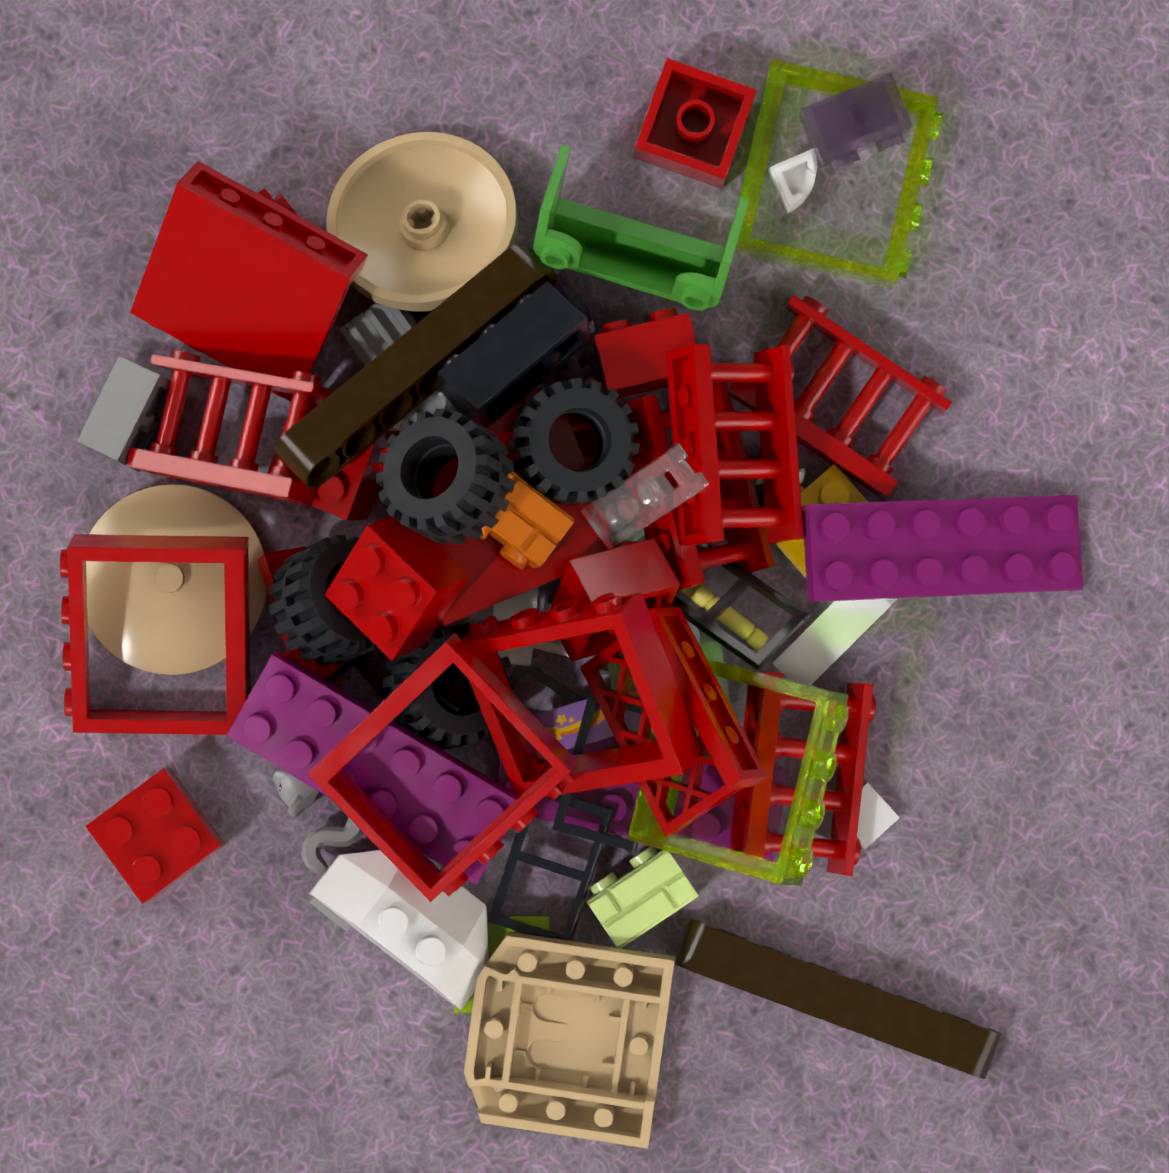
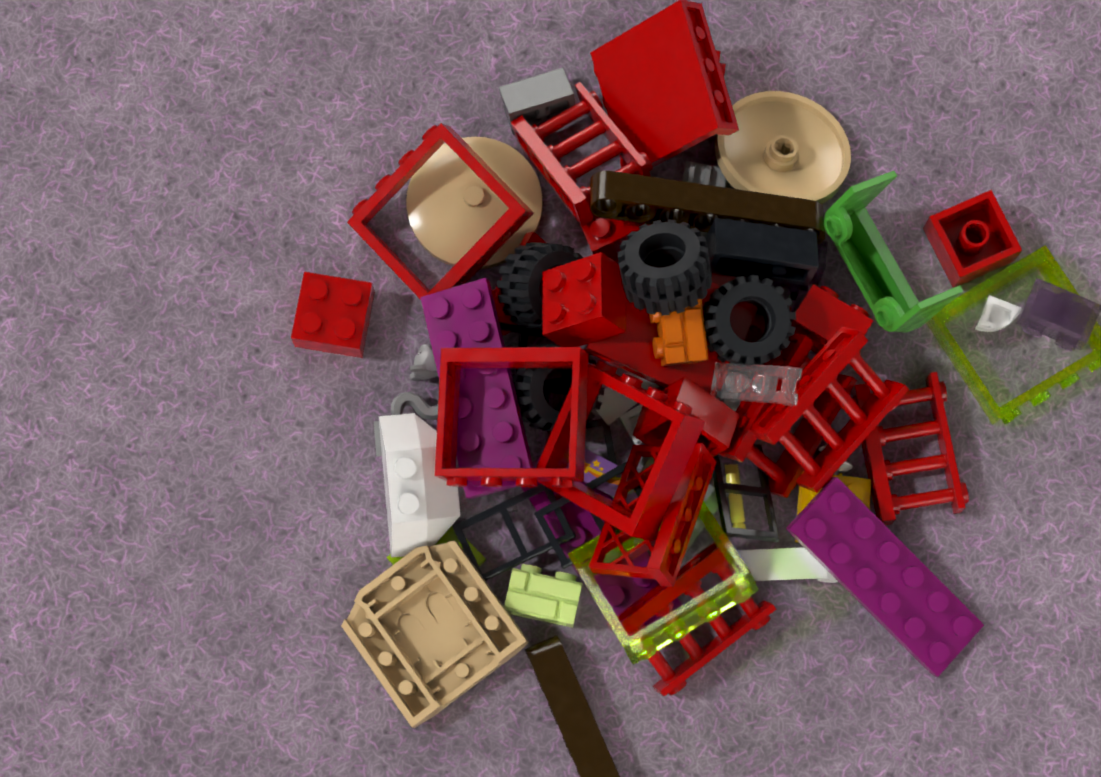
camera: 50 degrees right, 10 degrees down
(874, 816) = (705, 680): white tile -> none

